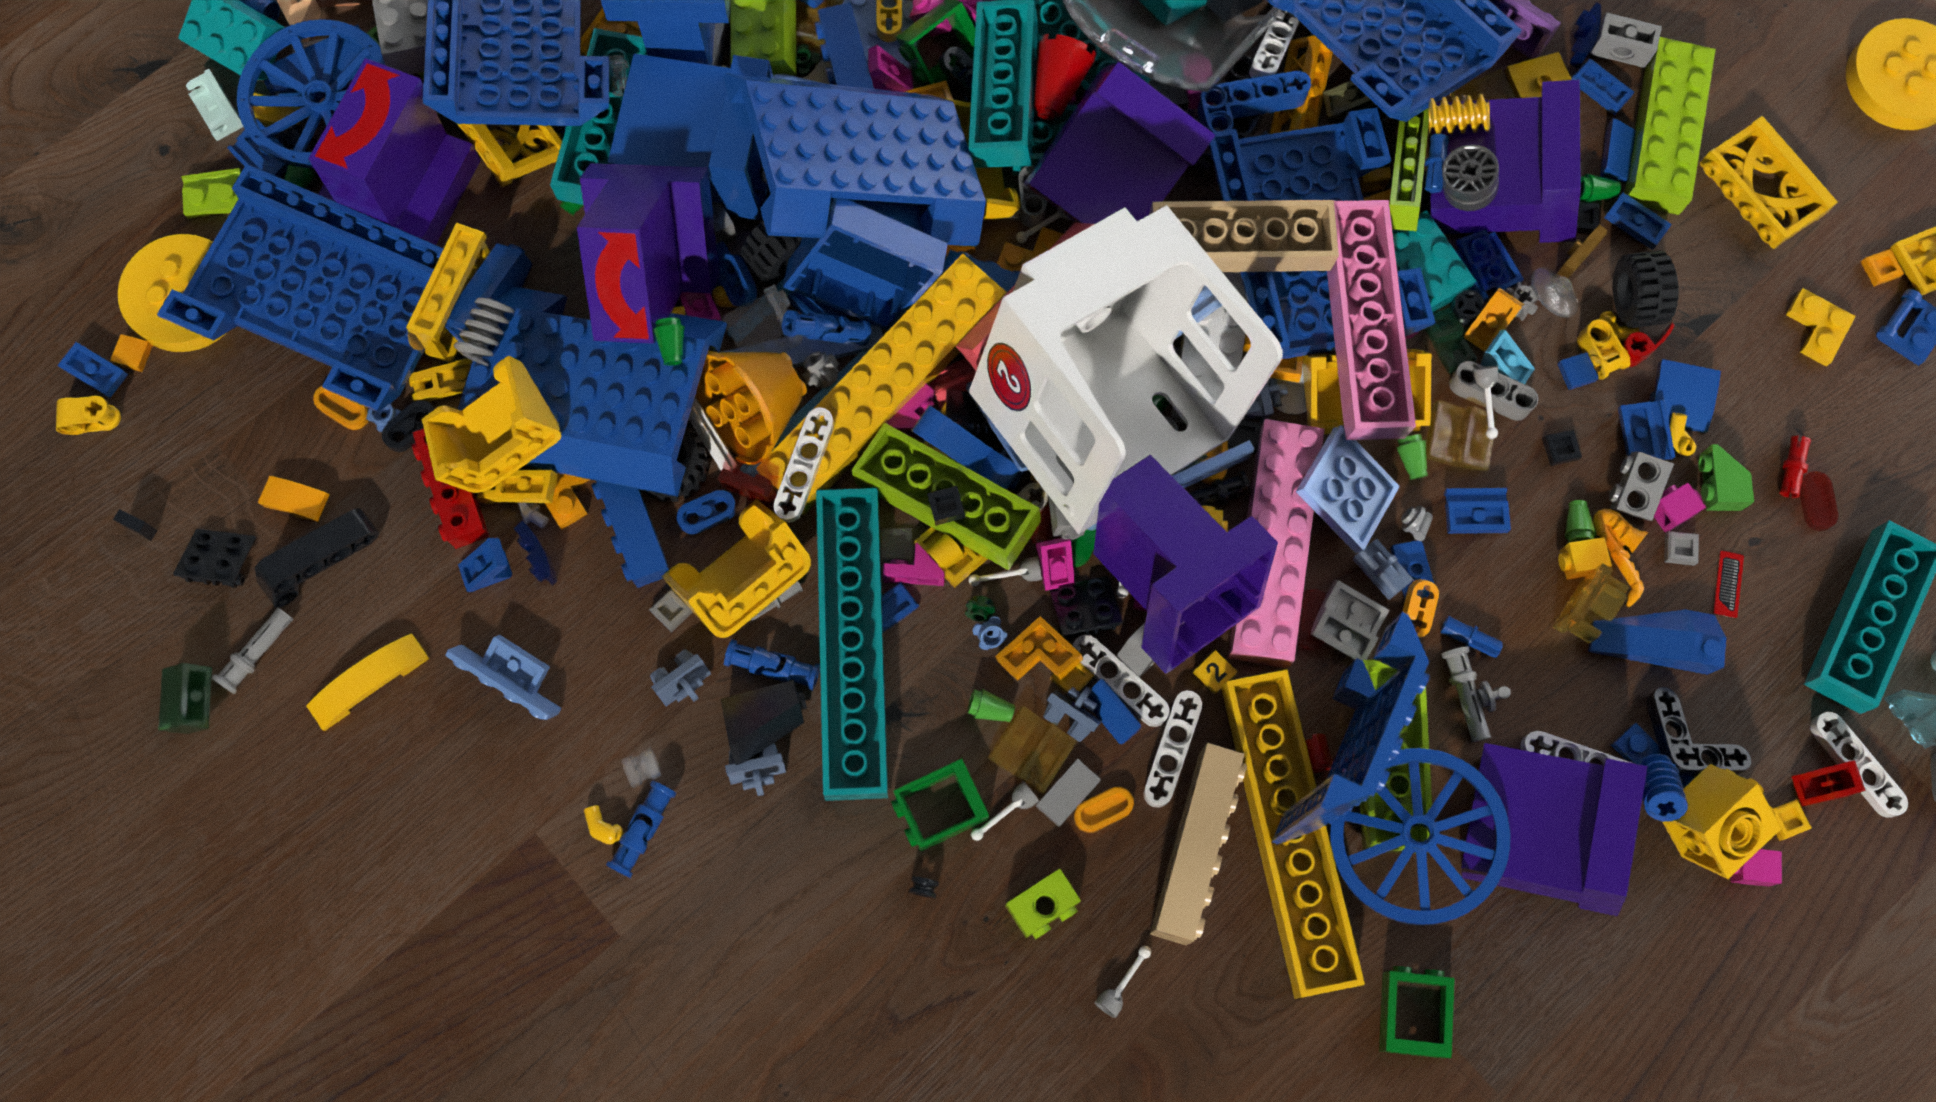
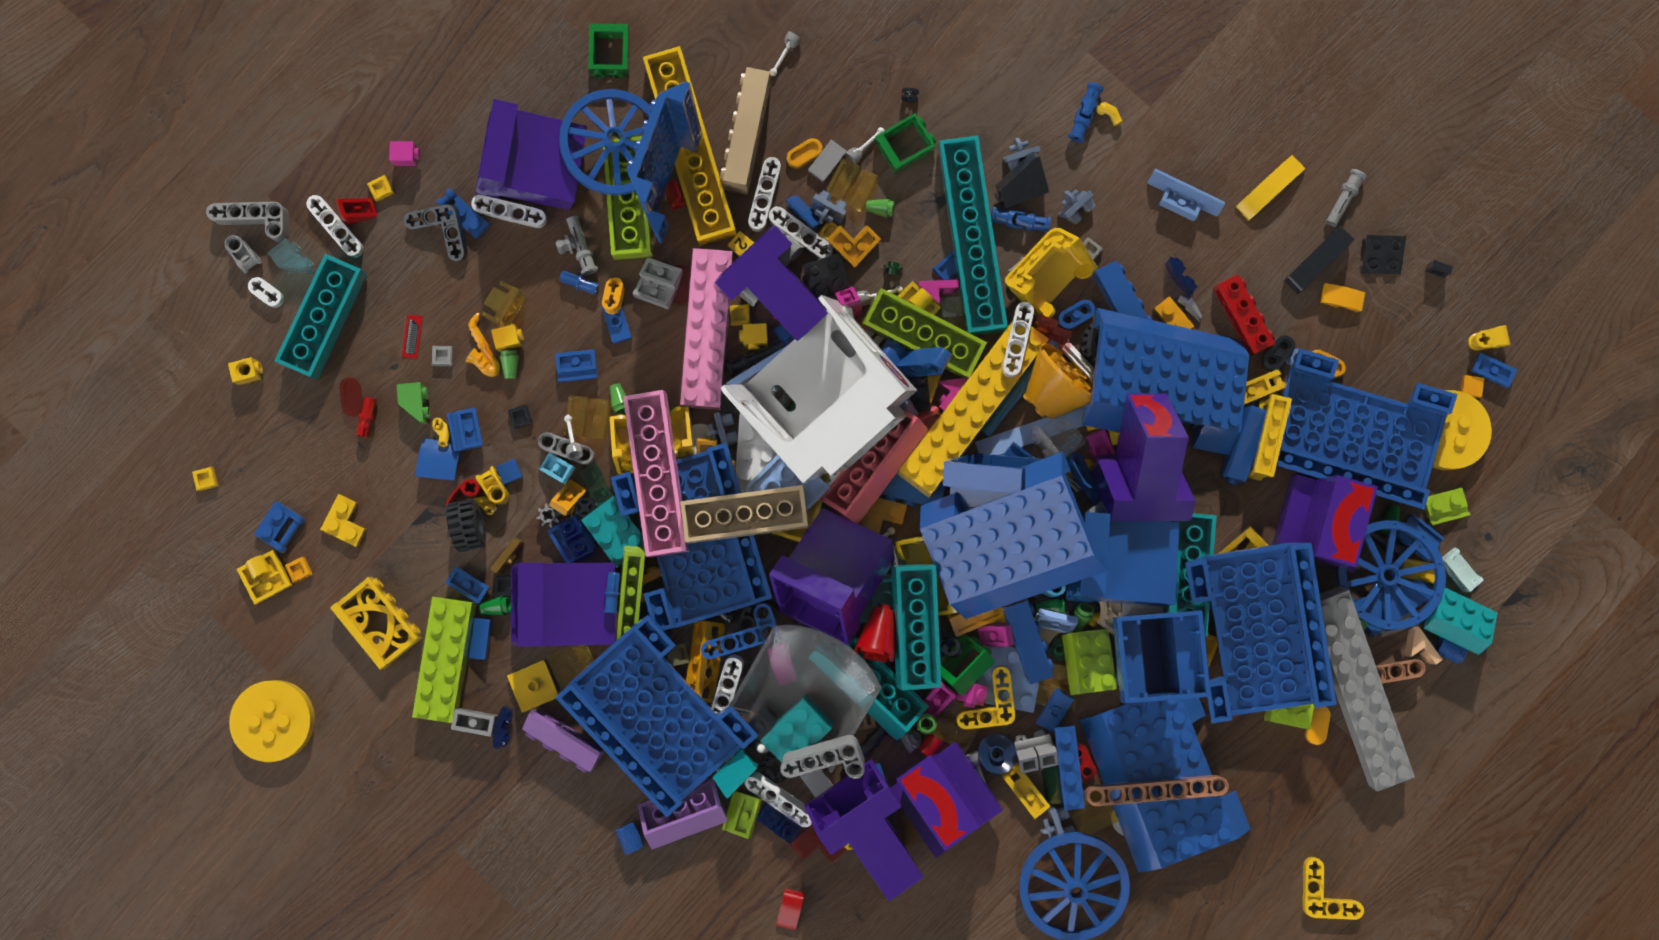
camera: 175 degrees right, 10 degrees up
(185, 698) = (1379, 160): clear green brick -> none
(483, 329) = (1239, 404): light grey piece -> none
(485, 566) = (1210, 264): blue slope -> none
(493, 433) = (1225, 338): yellow windscreen -> none
(523, 487) = (1200, 316): yellow plate -> none
(618, 74) = (1183, 597): clear pin -> none
(641, 767) = (1091, 148): clear wheel -> none
(670, 340) = (1116, 395): green cone -> none
(820, 369) = (1015, 416): light grey gear -> none
(826, 328) = (1015, 436): blue piece -> none
(946, 505) = (923, 319): black tile -> none
(993, 640) = (885, 253): medium blue plate -> none
(1053, 887) = (832, 101): lime brick -> none
(1348, 489) = (663, 363): light blue plate -> none
(1383, 569) = (637, 317): sand blue hips -> none
(1416, 522) = (616, 353): light grey plate -> none
(1459, 114) = (598, 626): yellow piece -> none
(1470, 177) = (599, 583): flat silver wheel -> none
(1554, 292) = (526, 523): clear dish -> none
(1603, 86) = (491, 687): blue plate -> none
(1648, 489) = (465, 389): light grey brick -> none
(1663, 789) = (463, 189): blue piece -> none
(1666, 639) = (450, 293): blue wedge -> none
(1678, 506) = (445, 381): dark pink brick -> none
(1723, 821) = (426, 174): yellow brick -> none

